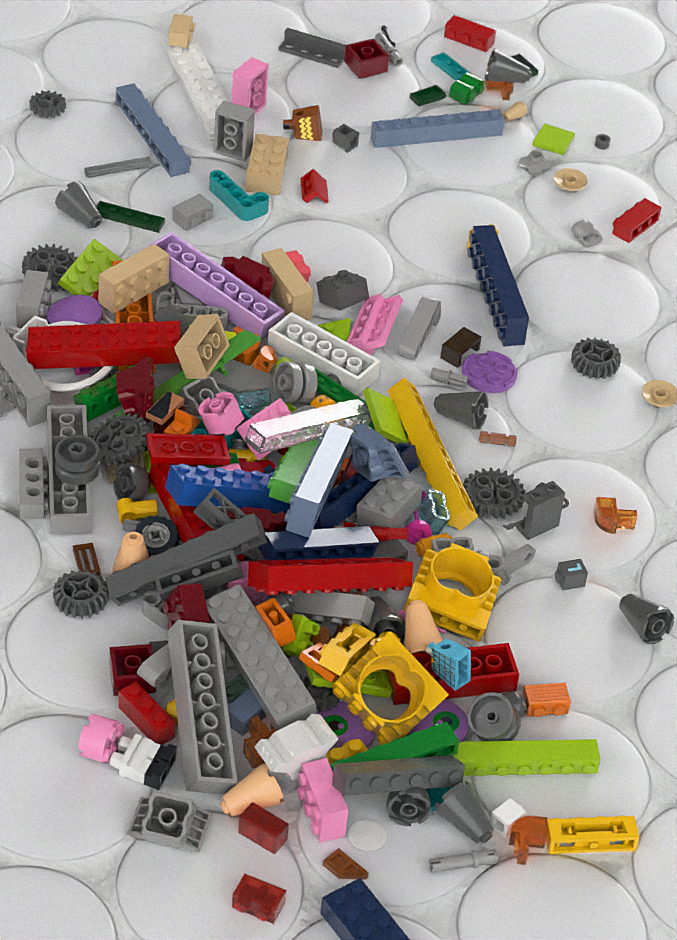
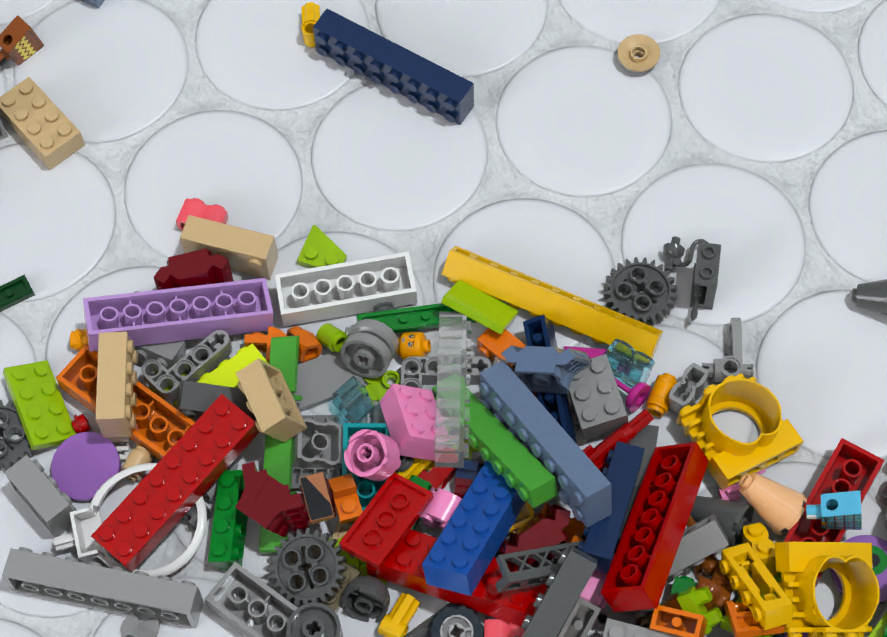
camera: 40 degrees left, 20 degrees up
(192, 212) = (42, 243): light grey brick -> none
(237, 200) = (25, 187): teal beam -> none
(314, 185) = (107, 108): red panel -> none
(342, 290) = (279, 203): dark grey brick -> none
(345, 137) = (67, 23): dark grey brick -> none
(374, 322) = (344, 211): bright pink brick -> none
(426, 314) = (394, 196): light grey beam -> none
(449, 377) = (465, 205): light grey axle -> none
(459, 344) = (437, 164): dark brown panel -> none
(463, 407) = (517, 229): dark grey cone -> none
(489, 372) = (484, 165): medium lavender tile -> none
(497, 438) = (574, 230): dark orange axle -> none
(571, 574) = (789, 312): dark grey brick -> none
(596, 358) = (546, 60): dark grey gear -> none
(610, 518) = (745, 223): clear orange brick -> none

